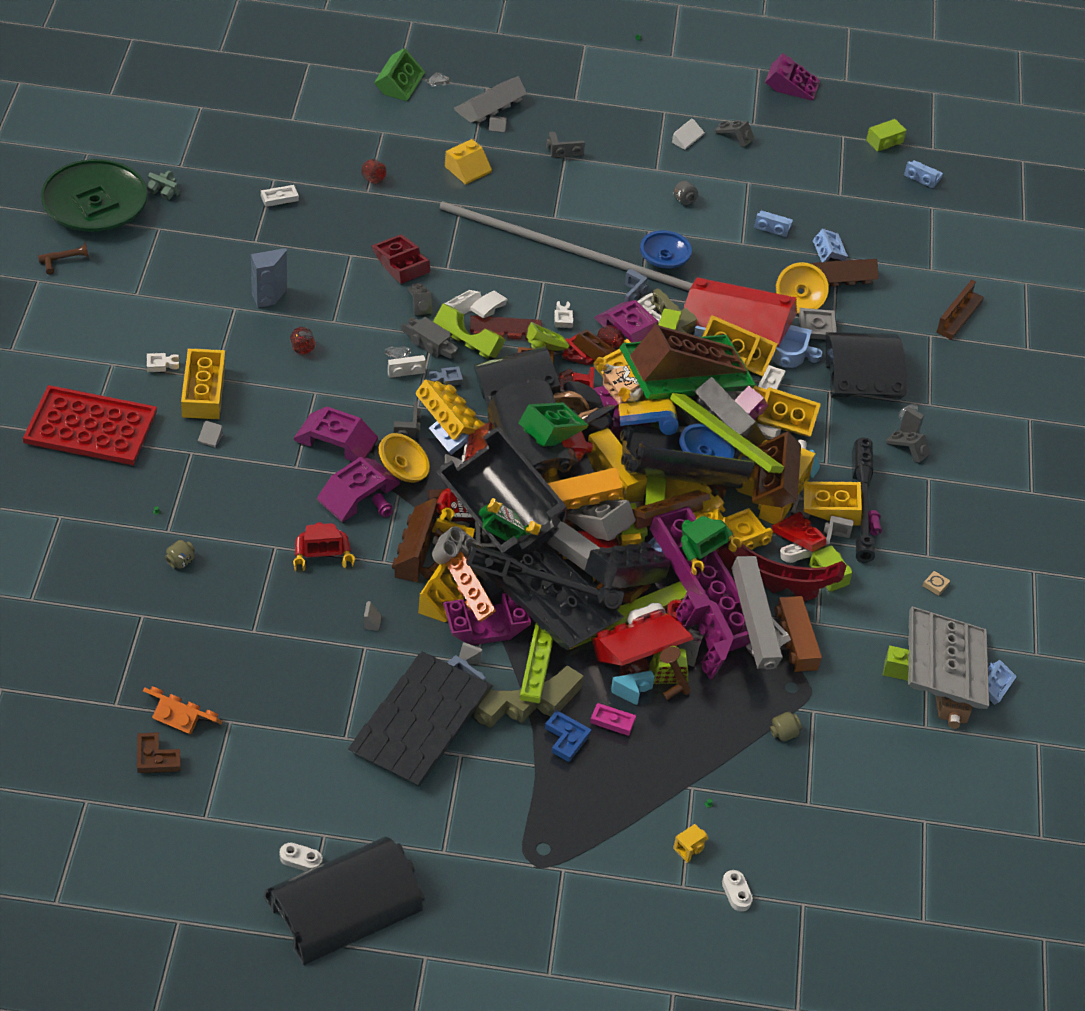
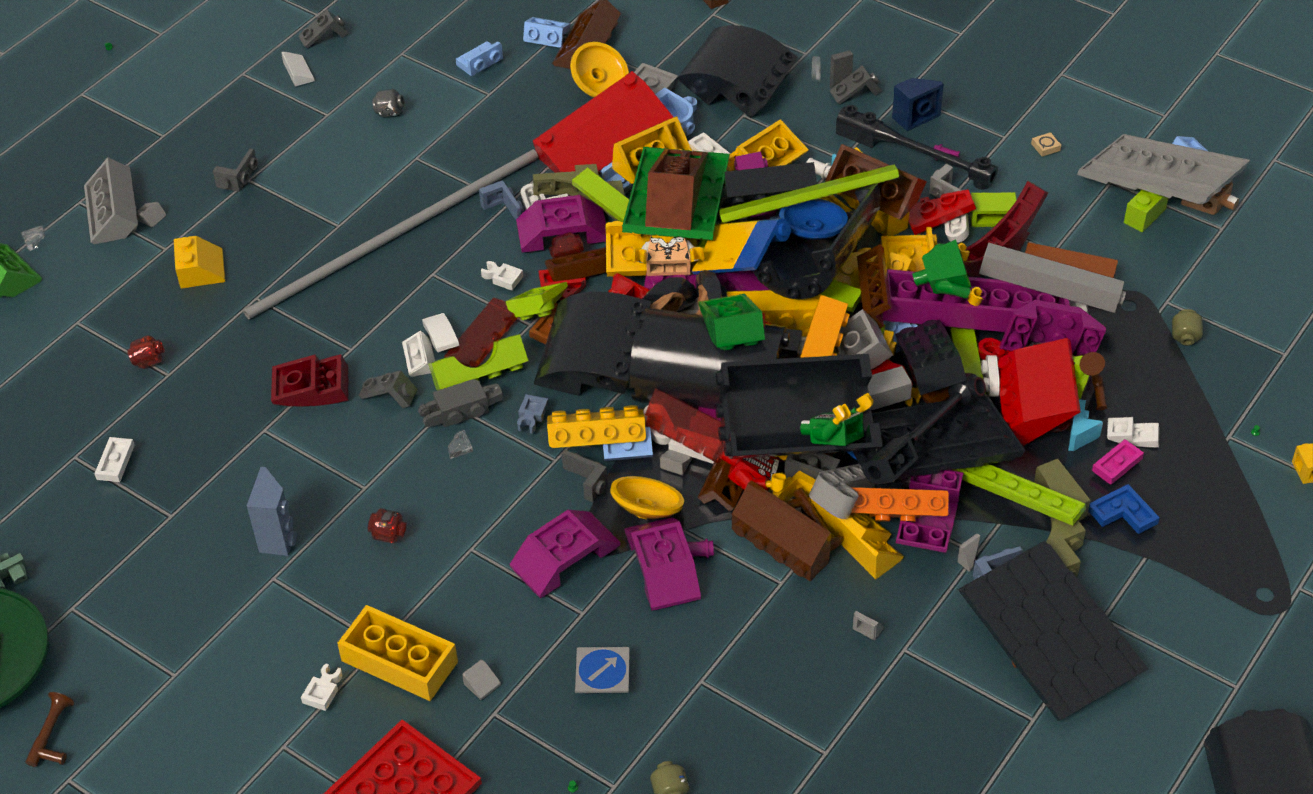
camera: 55 degrees left, 0 degrees up
(250, 490) = (602, 670): none -> piece
(322, 541) = (731, 628): red torso -> none
(406, 366) = (491, 447): white plate -> none
(651, 724) = (1137, 434): none -> white slope
(665, 249) = (467, 150): blue dish -> none
(833, 499) = (917, 157): yellow slope -> none
(910, 482) = (917, 102): none -> dark blue slope

